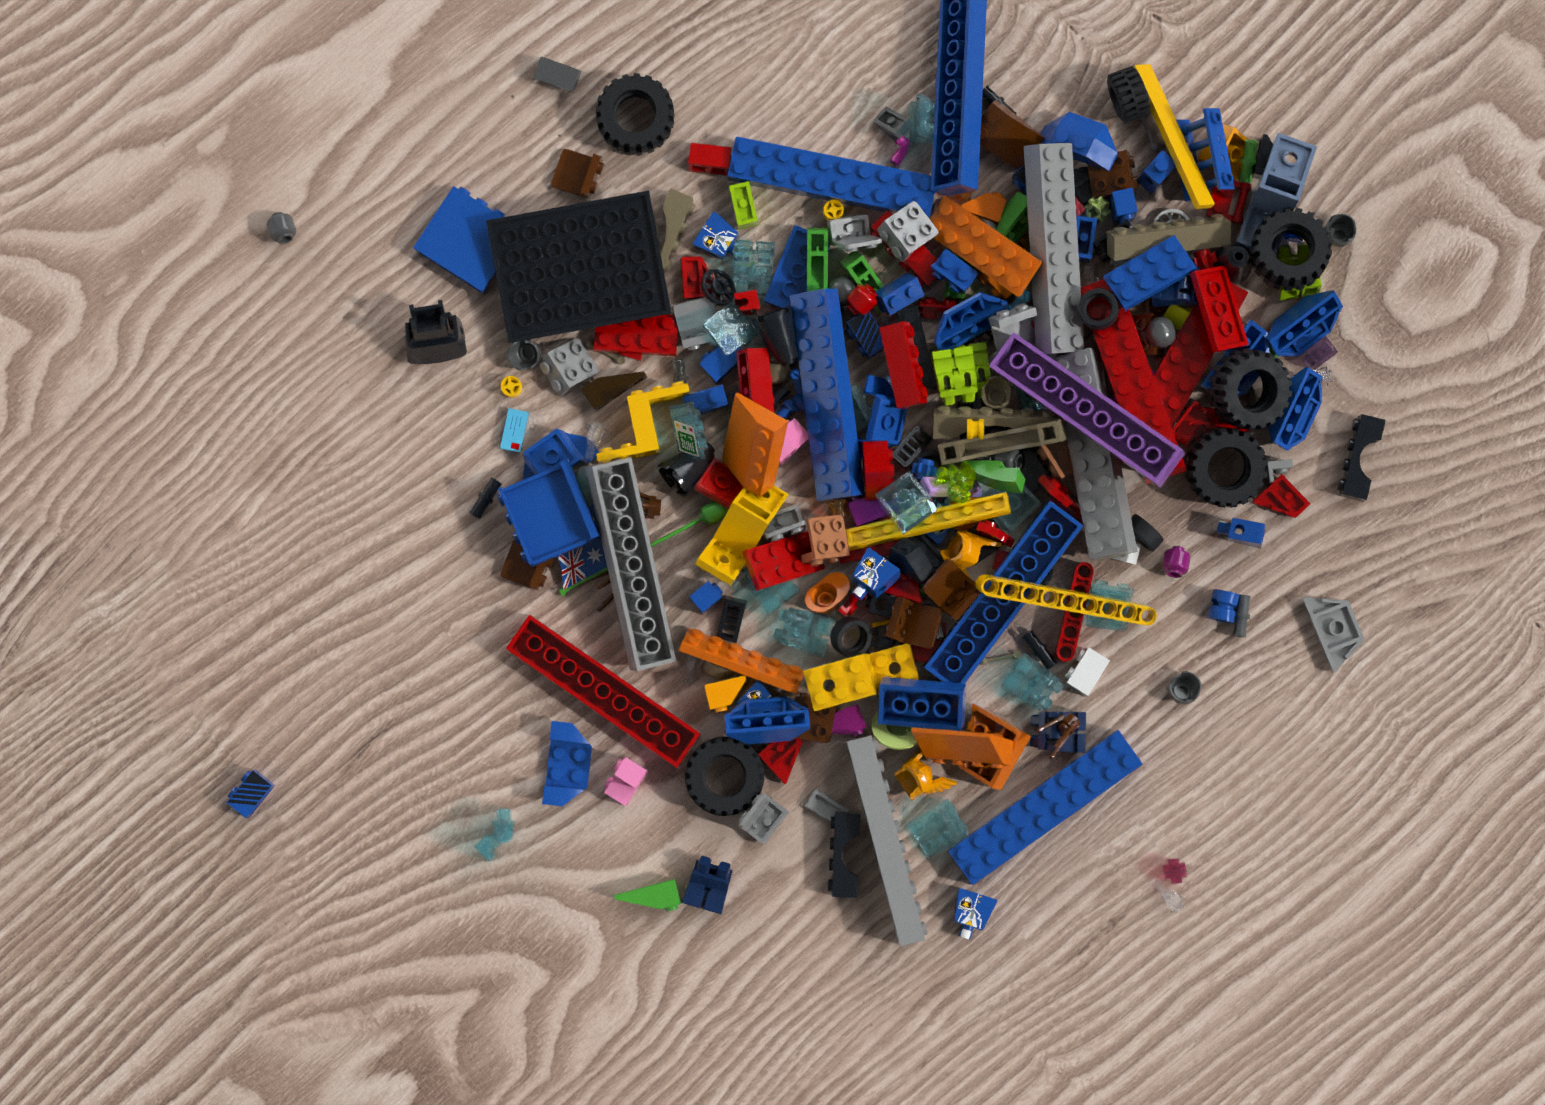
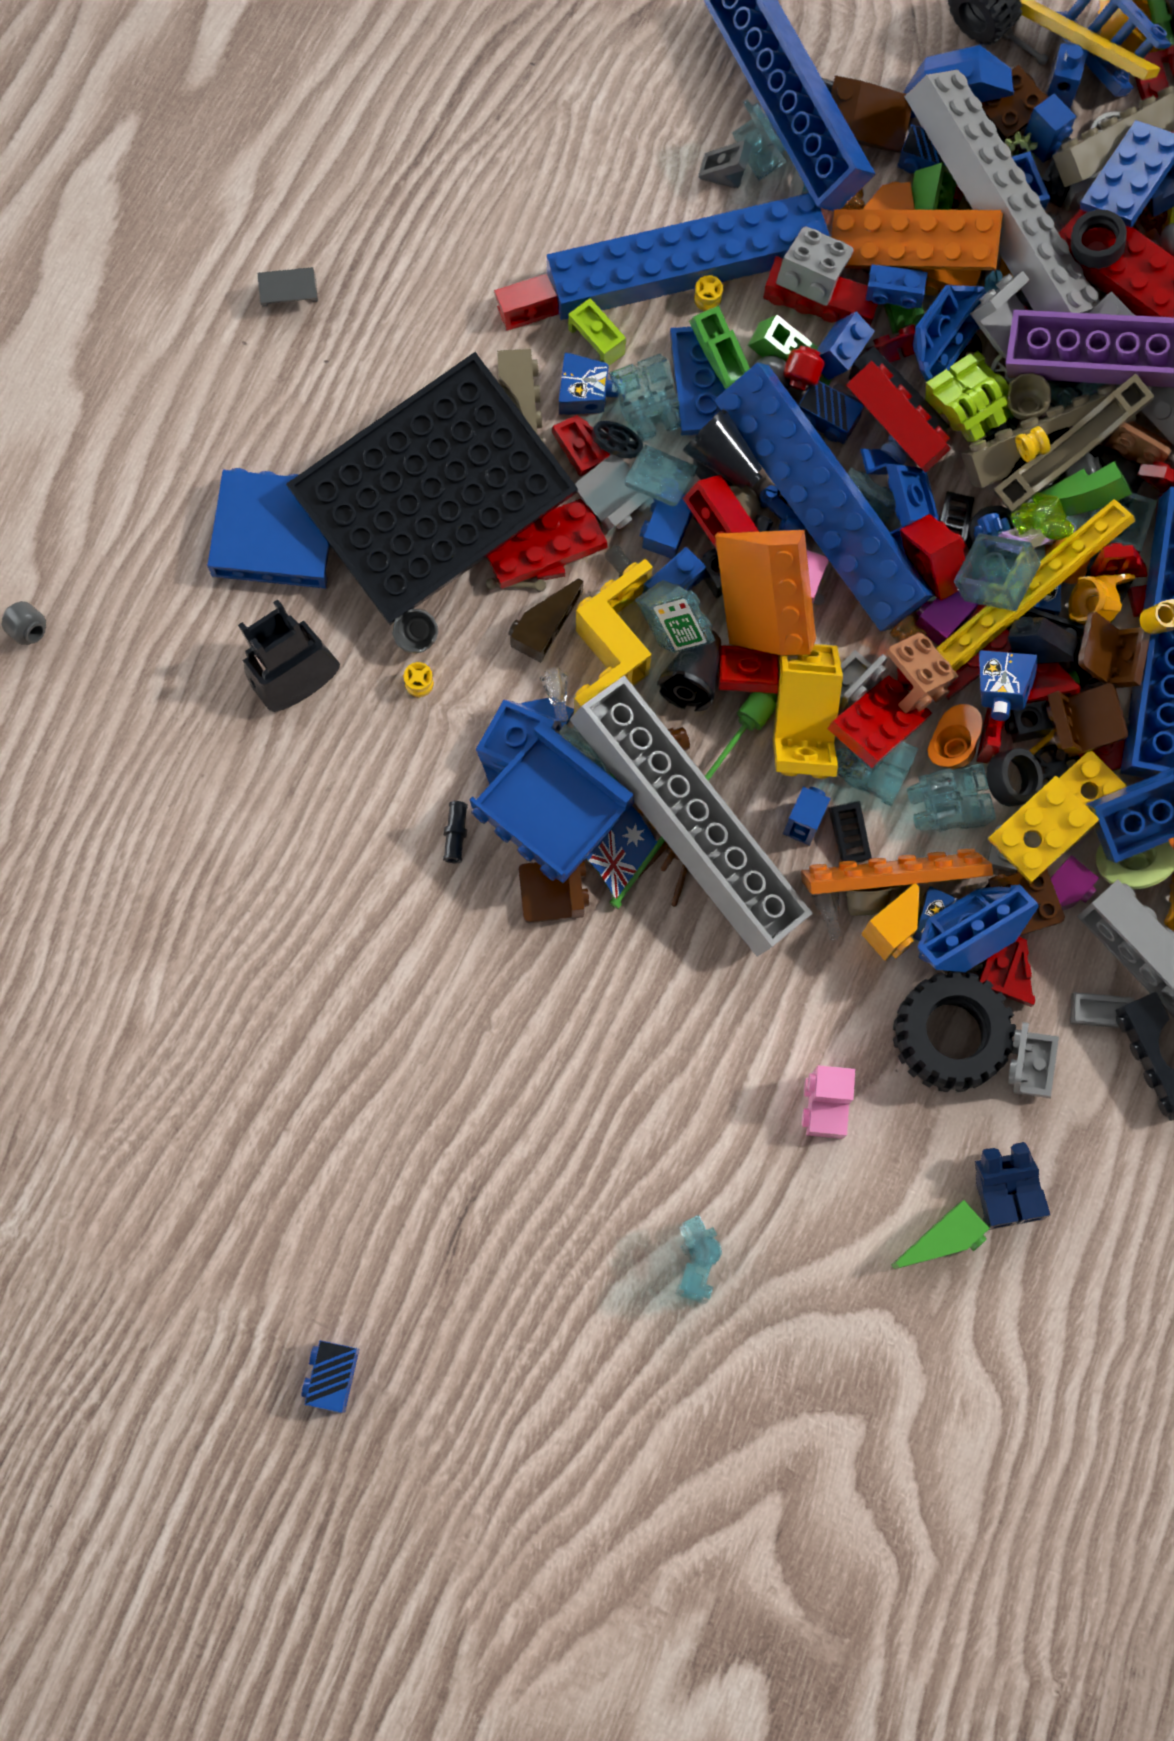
camera: 30 degrees left, 10 degrees down
(514, 430) = (449, 732): medium azure tile -> none
(567, 764) = (738, 1120): blue piece -> none
(568, 366) = (476, 622): light grey bracket -> none
(577, 173) = (371, 389): reddish brown bracket -> none
(603, 691) = (739, 1000): red brick -> none
(635, 87) = (403, 256): black tyre -> none
(749, 302) = (667, 434): red hinge -> none
(851, 233) = (747, 300): light grey bracket -> none
(901, 151) = (750, 179): dark pink arm -> none

